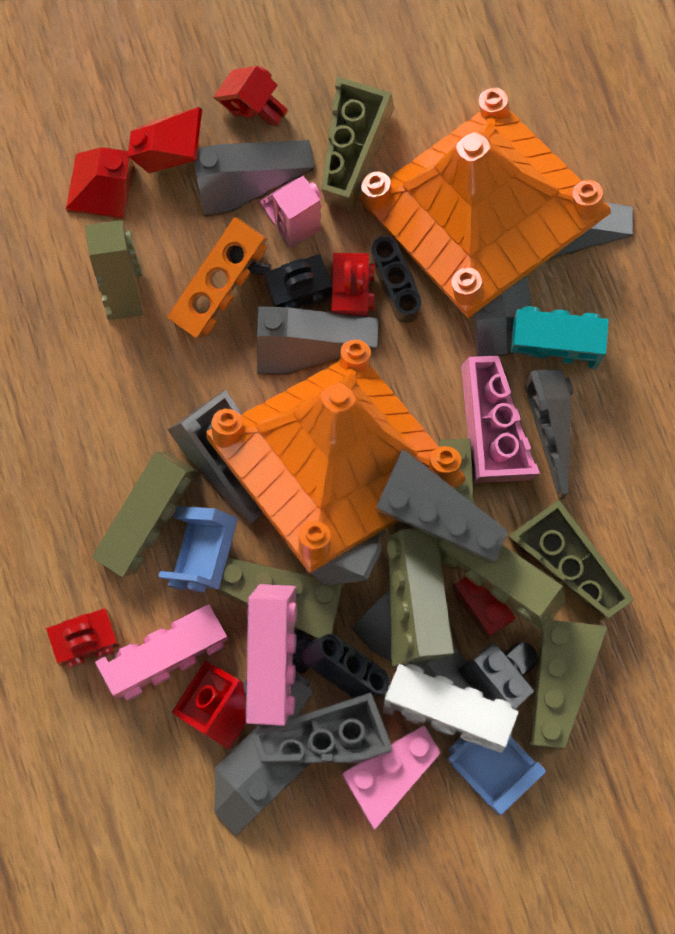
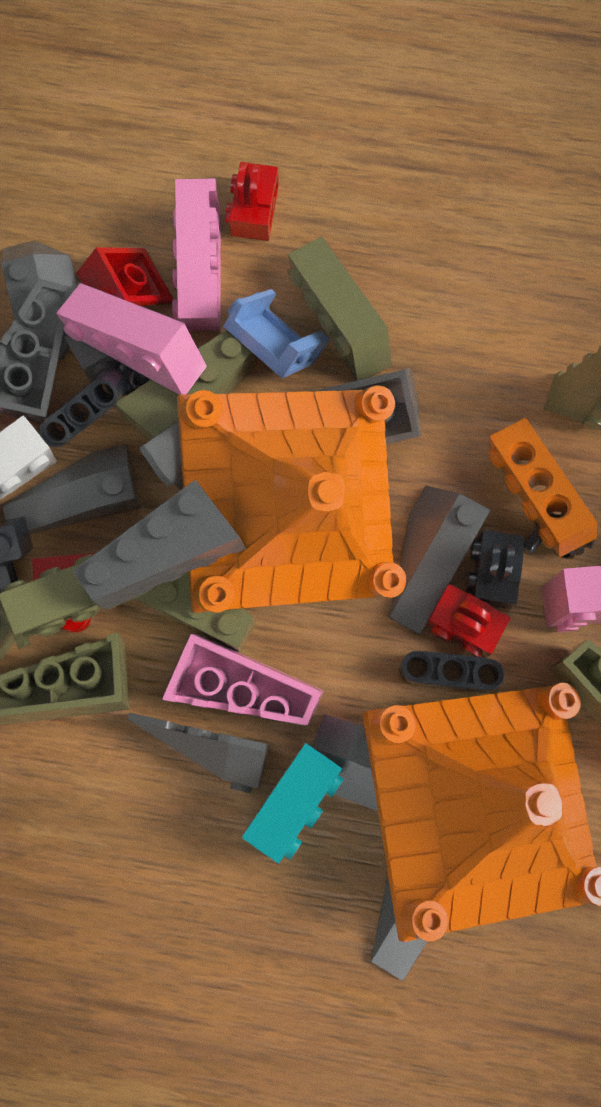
camera: 125 degrees right, 0 degrees up
(417, 599) = (88, 492): olive wedge -> none

